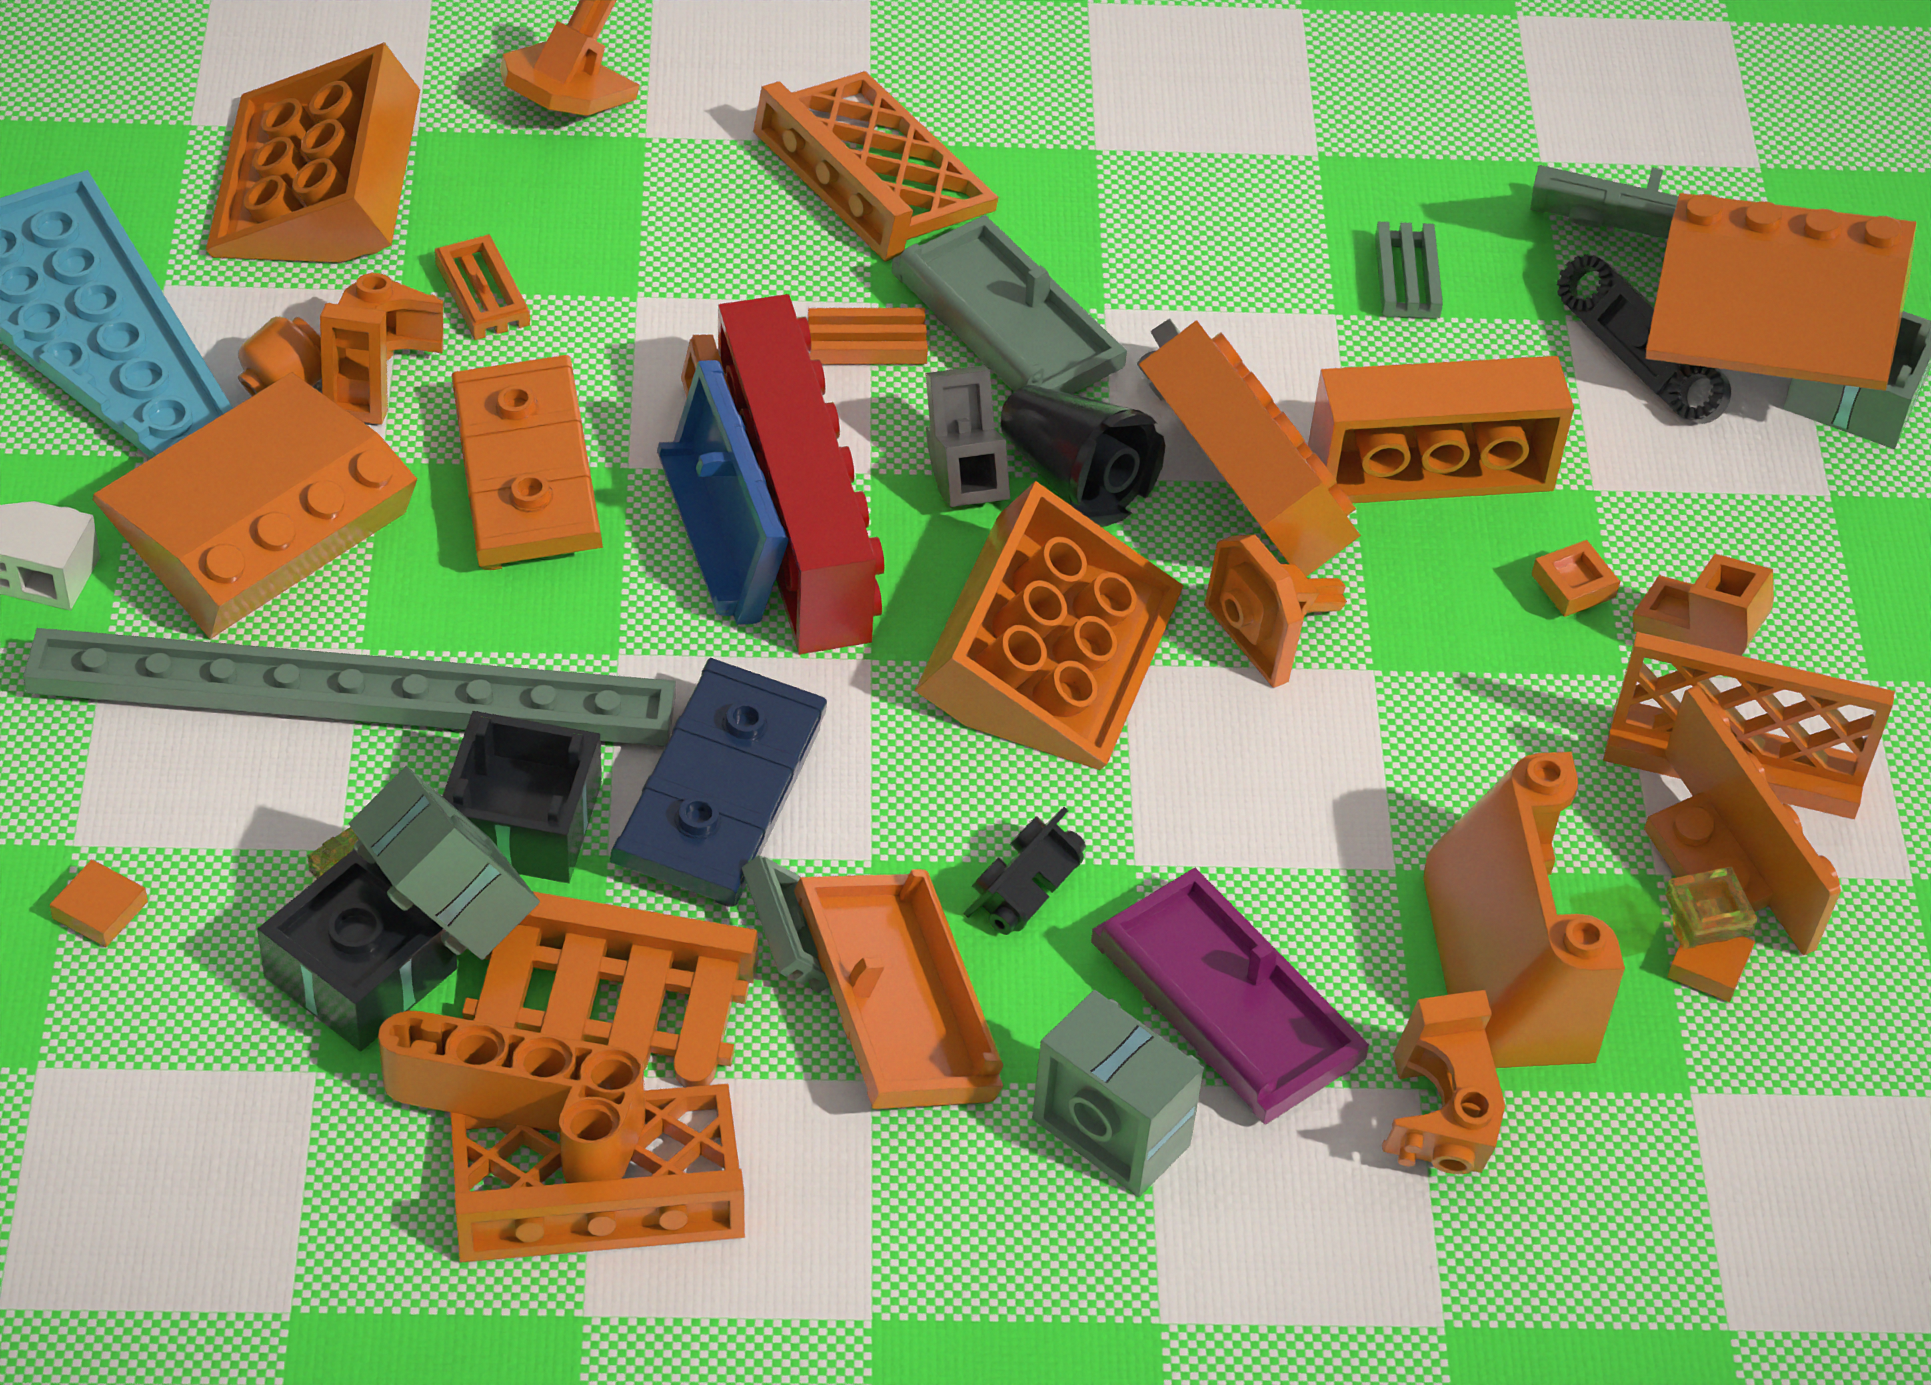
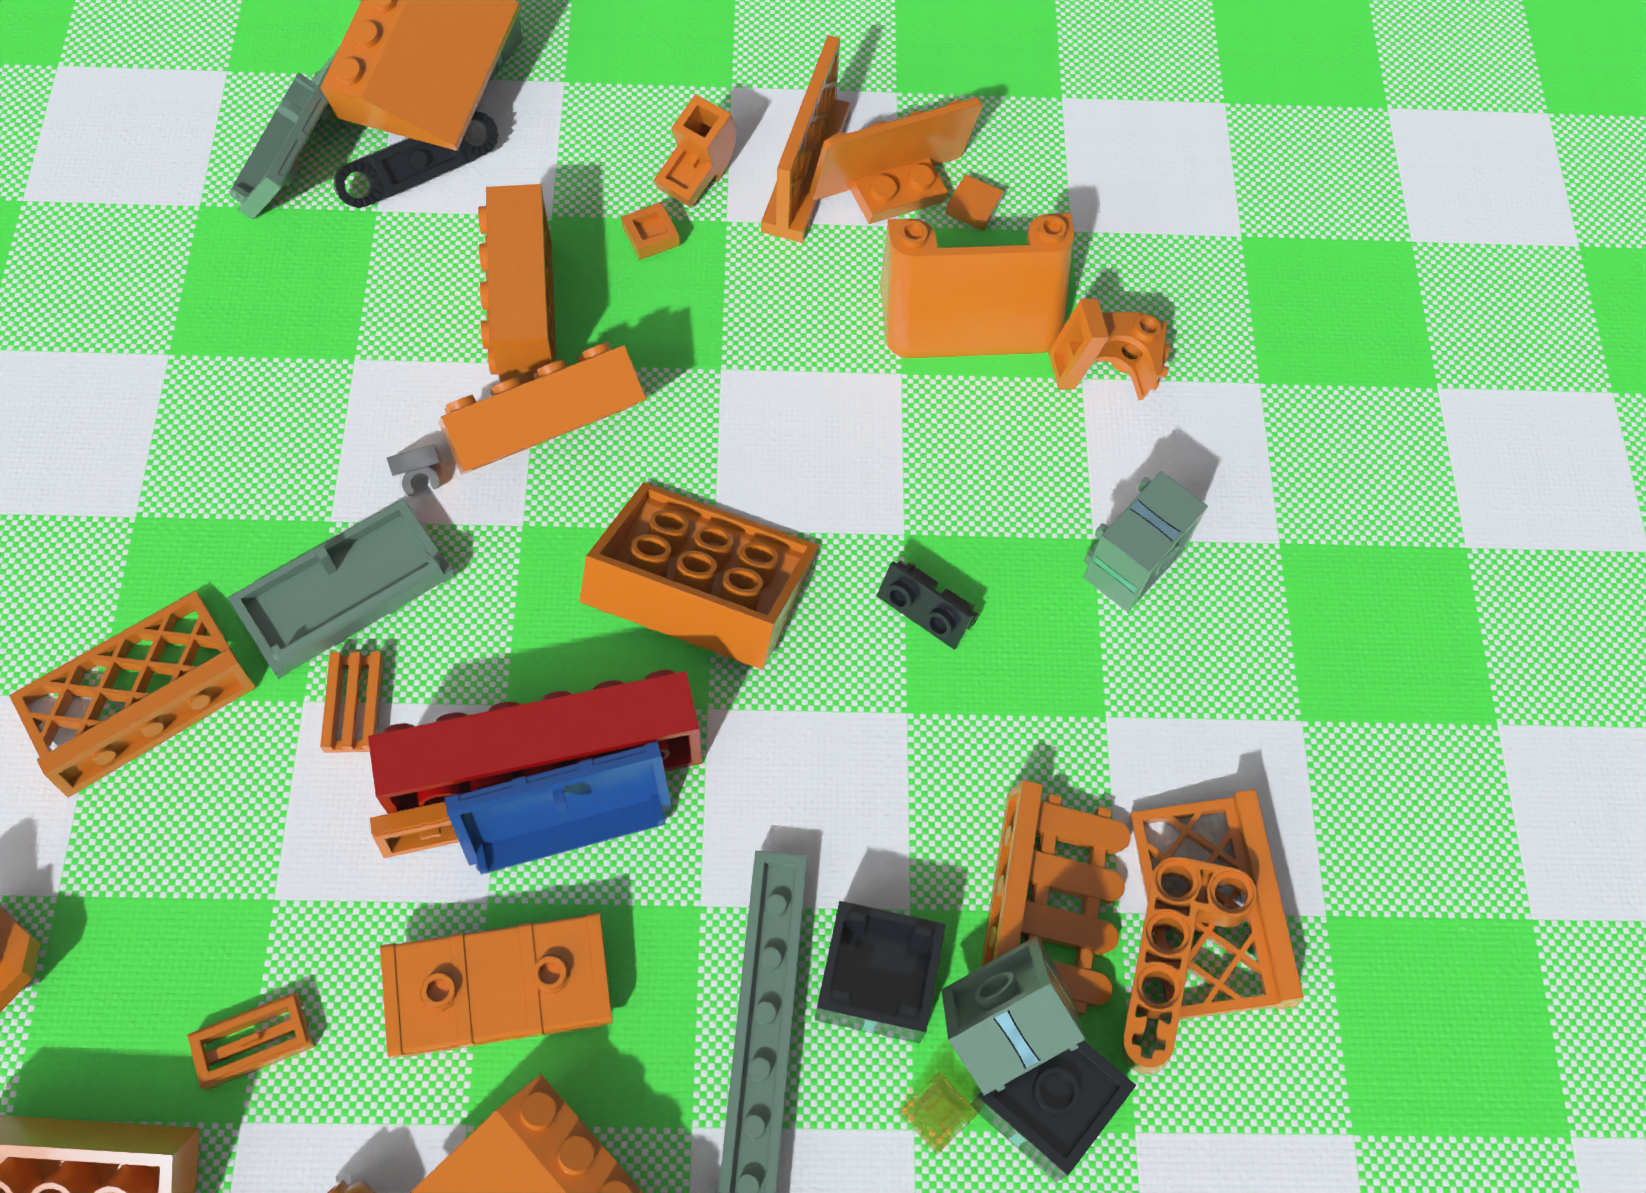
camera: 90 degrees left, 15 degrees up
(364, 332) = (306, 1134): orange tile -> none
(720, 782) = (857, 816): dark blue container -> none
(784, 921) = (991, 764): sand green tile -> none
(901, 989) = (1042, 688): orange container -> none
(962, 438) = (504, 624): flat silver brick -> none
(1086, 449) = (511, 539): black cone -> none
(1231, 995) = (1027, 477): magenta container -> none
(1265, 603) = (688, 418): orange piece -> none
(1408, 240) = (319, 295): sand green tile -> none
(1709, 908) = (965, 184): clear yellow tile -> none

